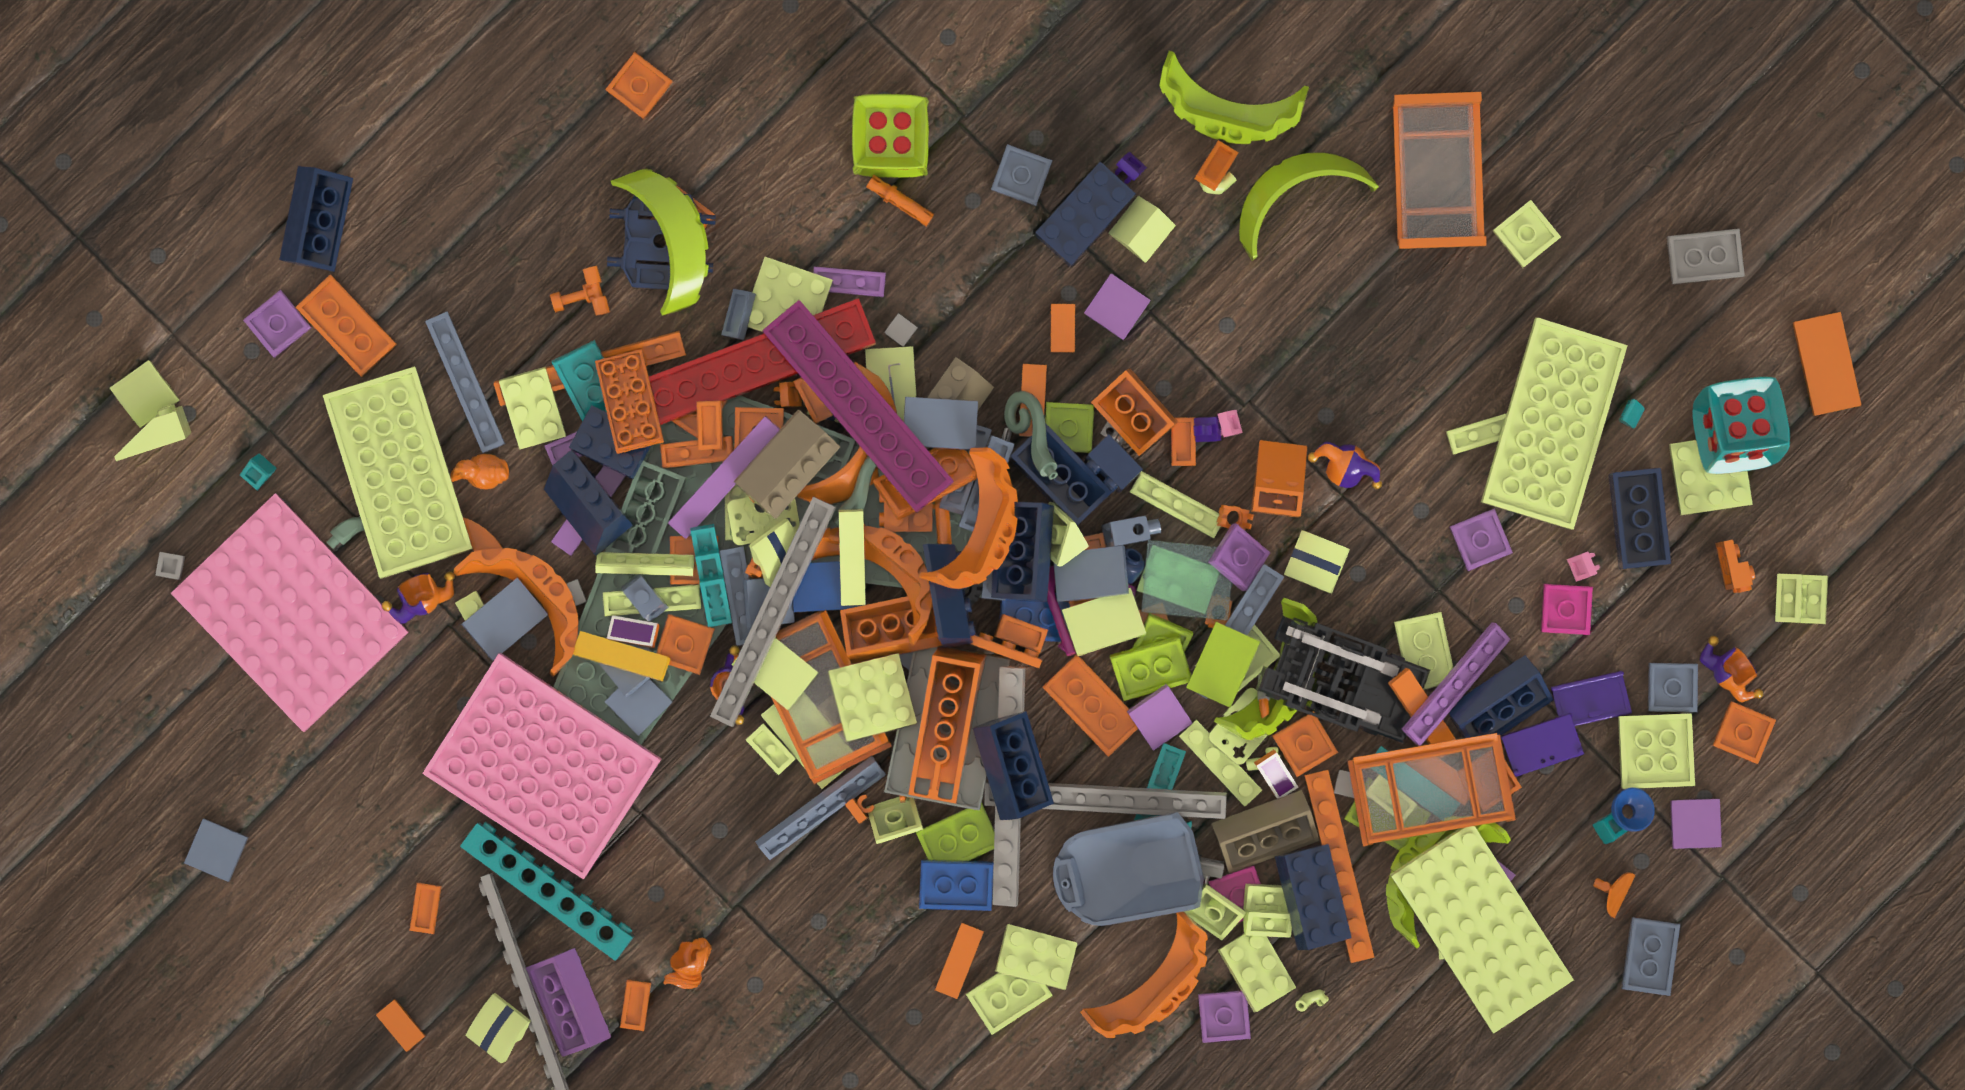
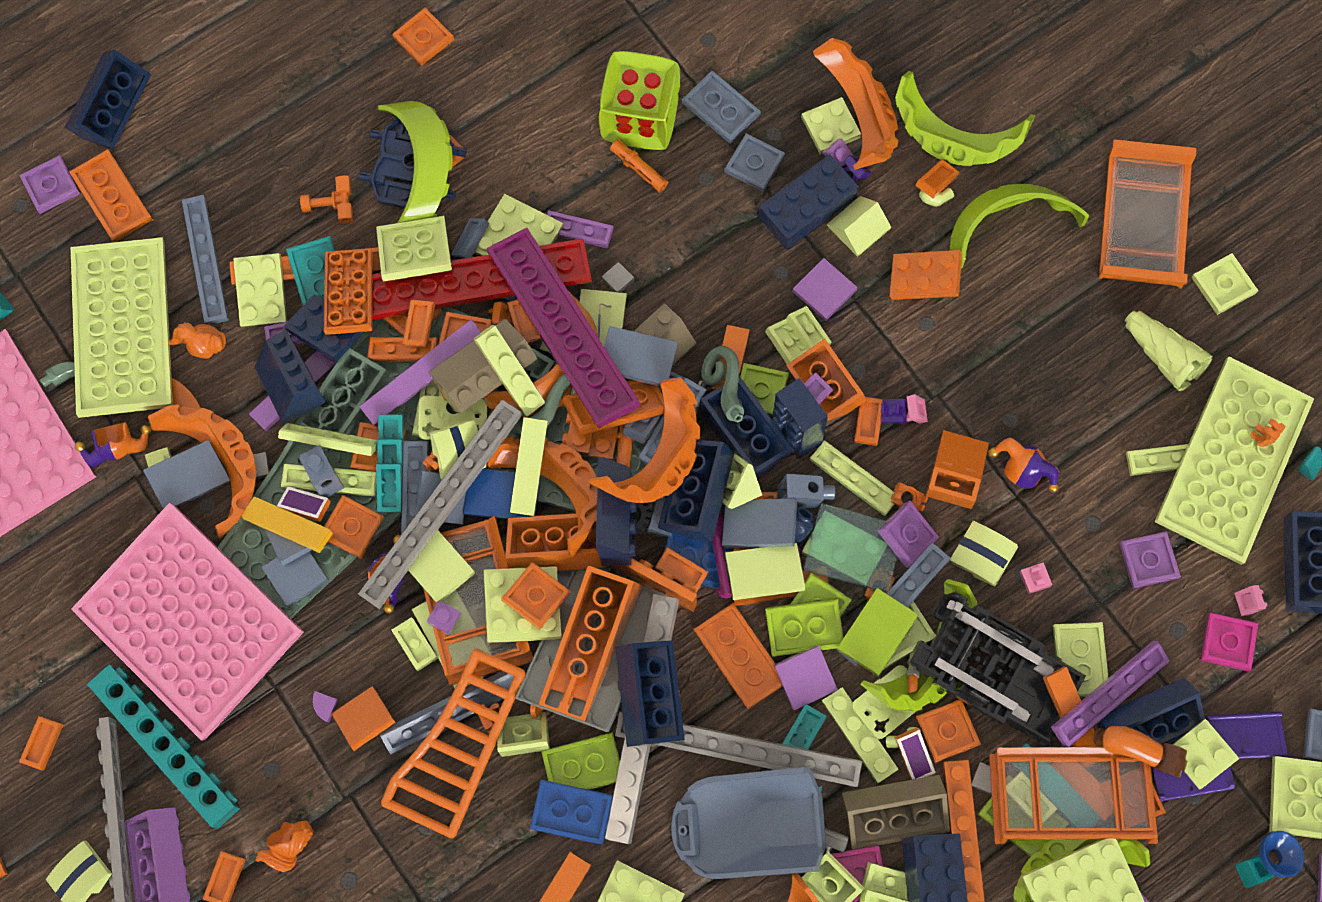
camera: 15 degrees right, 15 degrees down
(685, 341) = (413, 248): none -> yellowish green plate
(694, 824) = (324, 705): none -> medium lavender tile
(736, 831) = (363, 718): none -> orange tile
(797, 723) = (443, 617): none -> medium lavender plate
(809, 843) = (431, 740): none -> orange bar
(816, 468) = (509, 370): none -> yellowish green plate
(885, 689) = (535, 595): none -> orange tile
(975, 116) = (721, 107): none -> sand blue tile
(1062, 328) = (770, 300): orange tile -> none
(1095, 119) = (830, 123): none -> yellowish green plate
(1097, 363) = (796, 334): none -> yellowish green slope
(1108, 153) = (838, 151): none -> medium lavender plate
(1125, 427) = (818, 387): none -> medium lavender plate
(1136, 92) = (868, 99): none -> orange windscreen
(1219, 277) = (926, 275): none -> orange plate
(1371, 577) = (1035, 578): none -> bright pink tile
(1482, 325) = (1171, 352): none -> yellowish green cone
(1487, 736) = (1134, 744): none -> orange piece
(1549, 727) = (1206, 754): none -> yellowish green plate
(1584, 396) = (1269, 434): none -> orange piece

